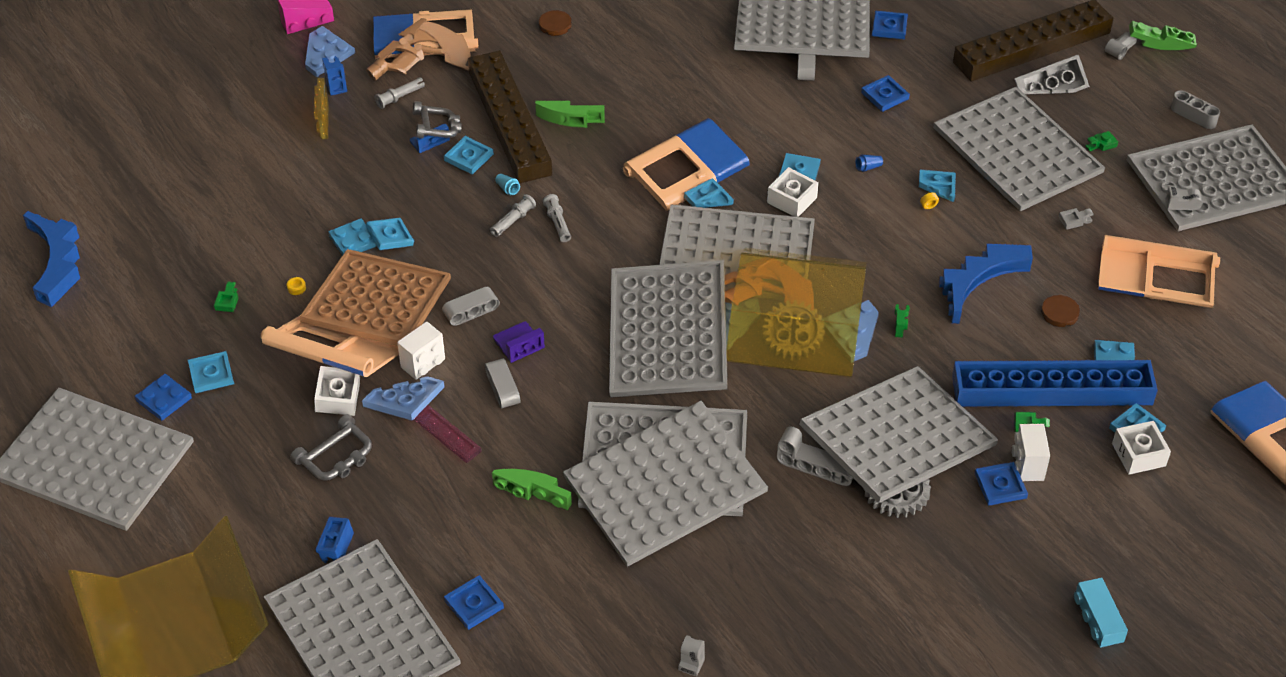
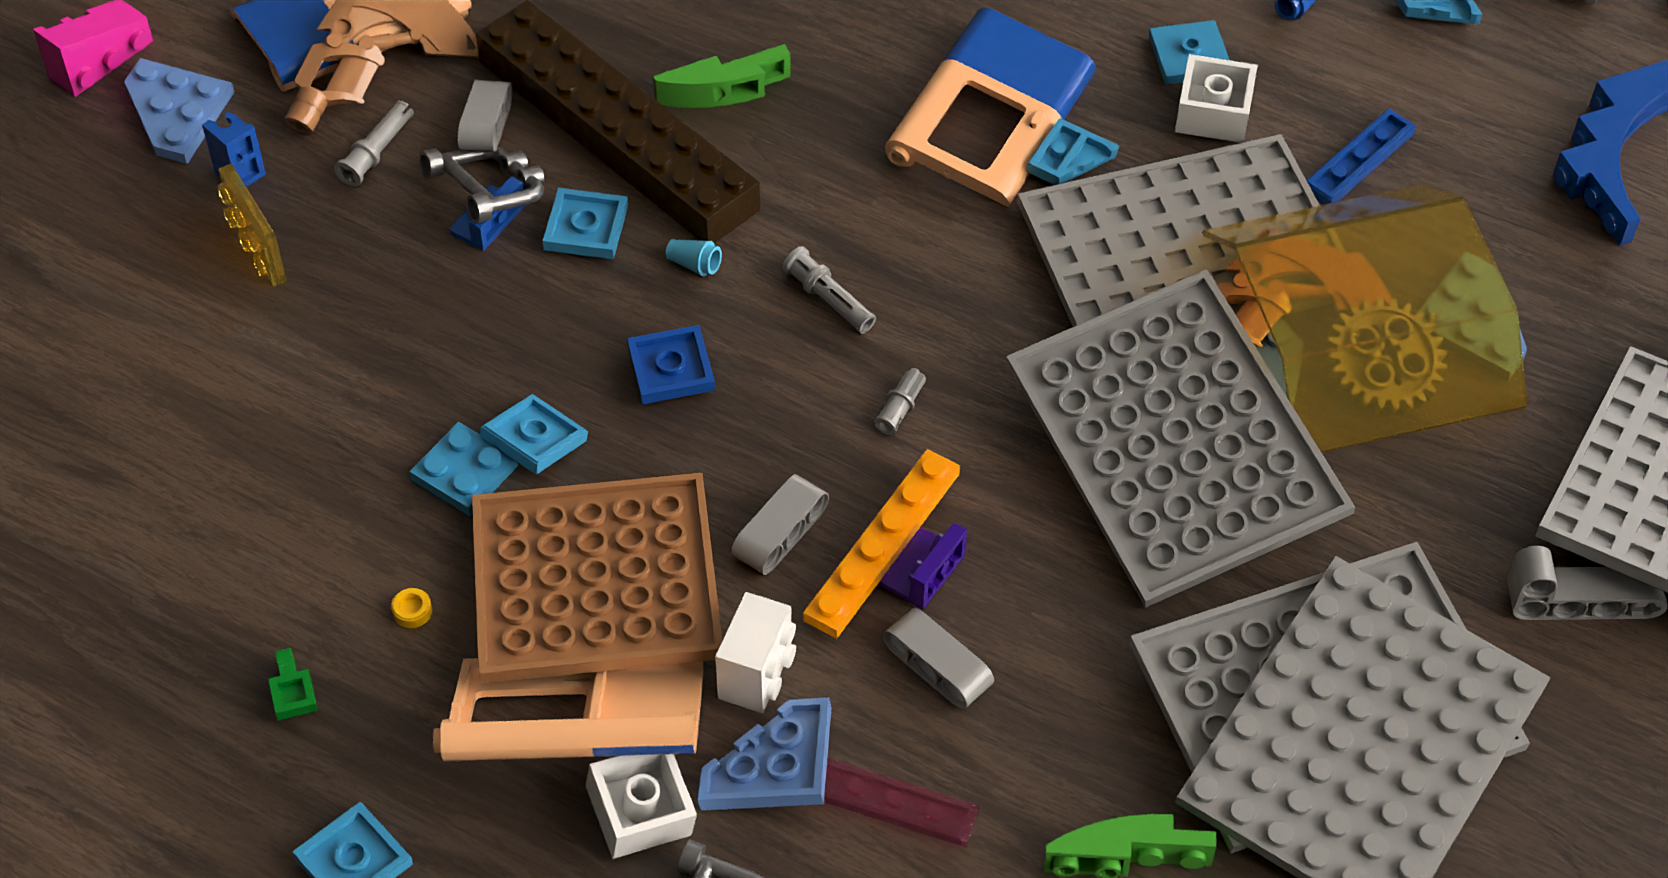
camera: 25 degrees left, 5 degrees up
(452, 95) = (485, 115): none -> light grey beam
(467, 225) = (671, 364): none -> blue plate
(508, 328) = (881, 544): none -> light orange plate
(518, 211) = (748, 302): light grey pin -> none
(558, 274) = (900, 401): none -> light grey axle
(849, 242) = (1360, 157): none -> blue tile
(901, 323) = (1545, 272): green plate -> none
(929, 200) = (1444, 35): yellow tile -> none

